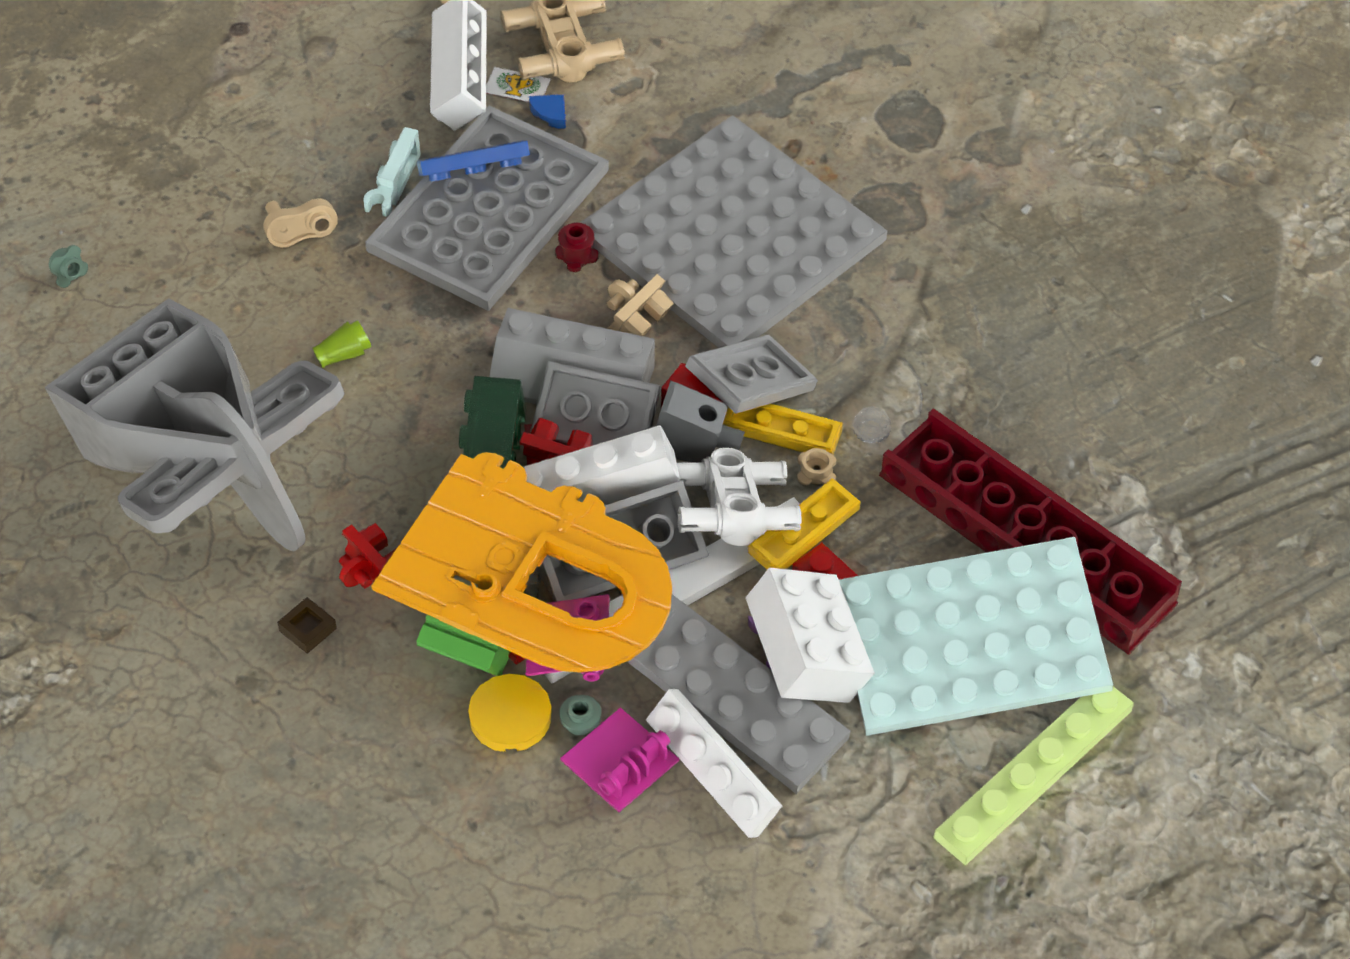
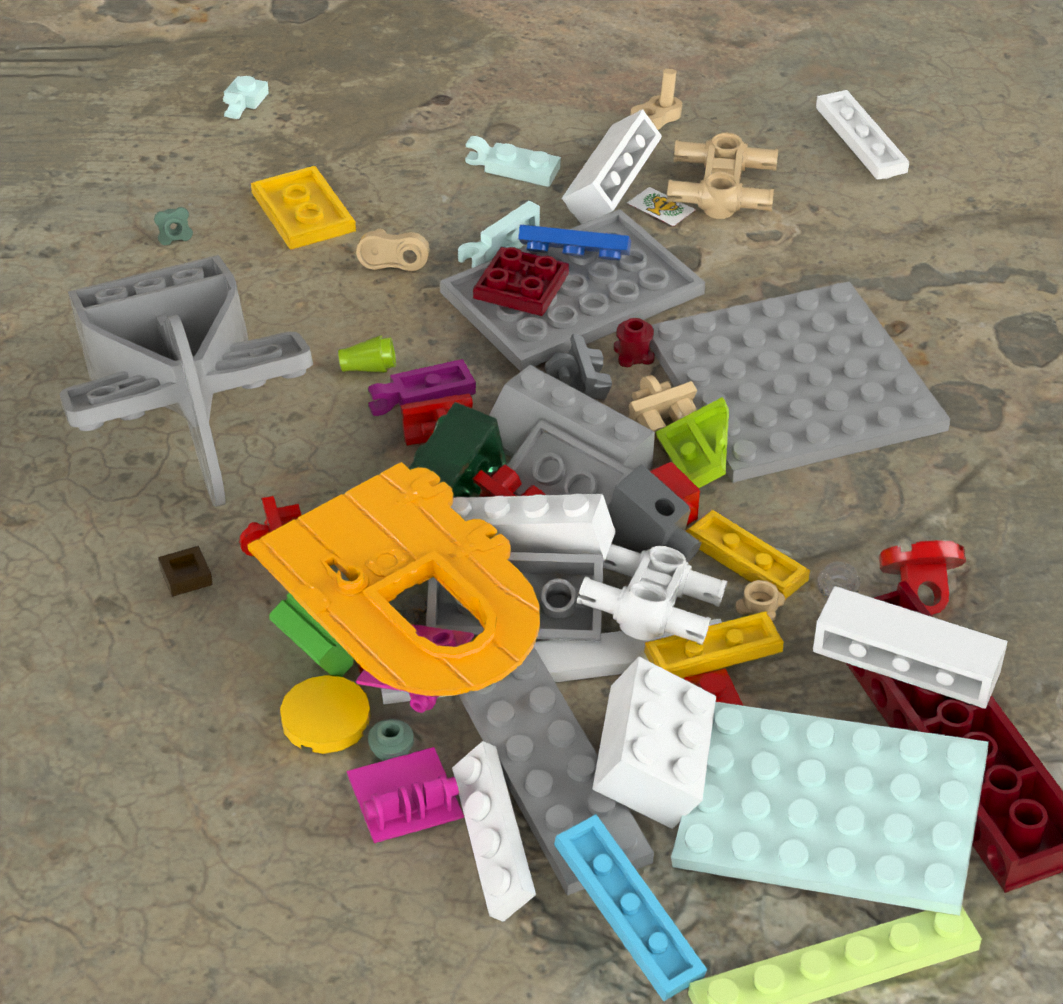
camera: 25 degrees right, 10 degrees down
(39, 87) = (244, 93): none -> light aqua plate
(178, 200) = (303, 207): none -> yellow tile
(353, 81) = (513, 161): none -> light aqua plate
(412, 359) = (421, 385): none -> magenta plate
(443, 217) = (521, 280): none -> dark red tile
(443, 390) = (421, 417): none -> red hips
(542, 292) = (581, 369): none -> dark grey hips
(550, 109) = (678, 231): blue tile -> none
(686, 327) = (699, 442): none -> lime wing
(751, 373) = (737, 494): light grey tile -> none
(860, 786) = (630, 907): none -> medium azure plate
(941, 388) = (925, 565): none -> red tile
(972, 472) = (909, 646): none -> white brick

